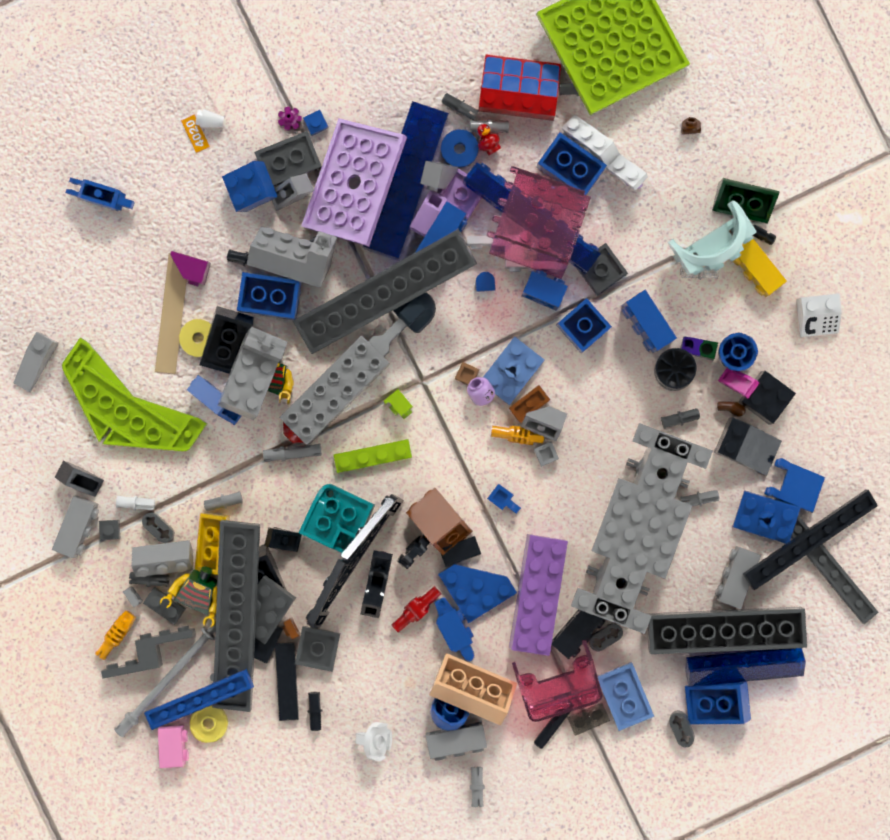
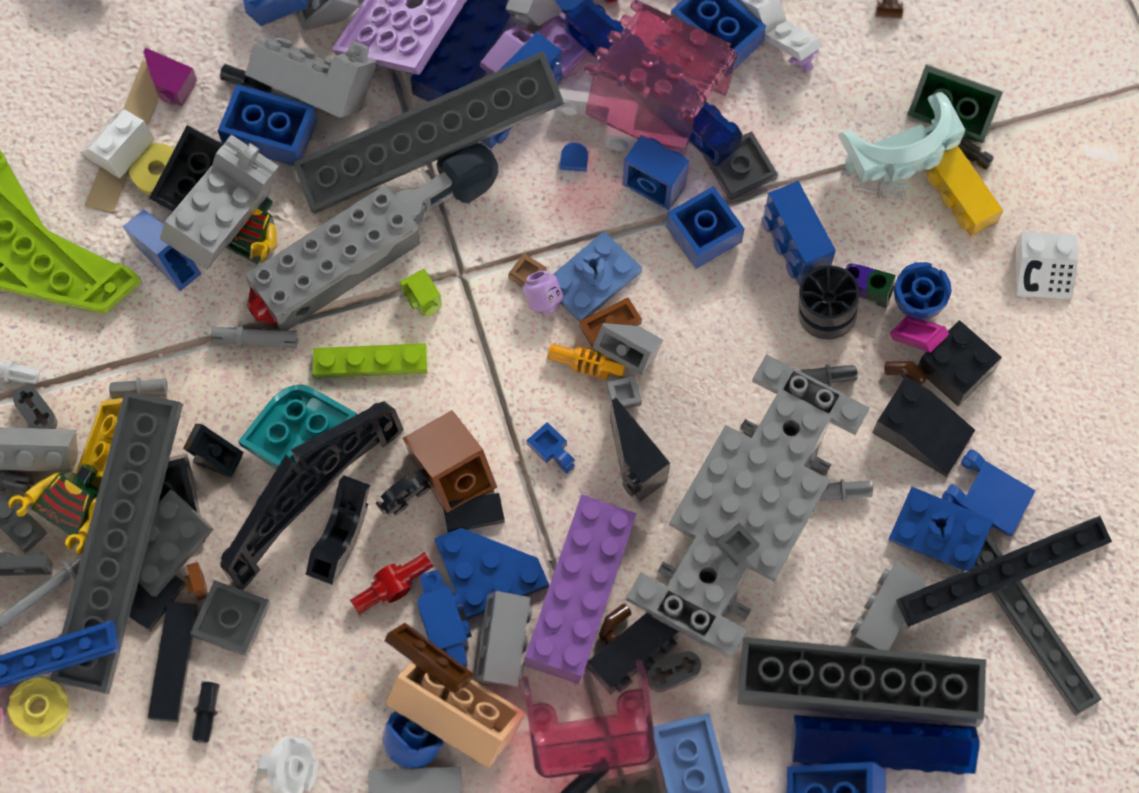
camera: 10 degrees right, 20 degrees down
(167, 325) = (119, 143): none -> white slope
(450, 660) = (429, 657): none -> reddish brown tile
(495, 638) = (503, 640): none -> light grey brick
(561, 612) = (611, 621): none -> reddish brown arm
(563, 504) = (640, 460): none -> black slope
(639, 564) = (737, 544): none -> dark grey plate

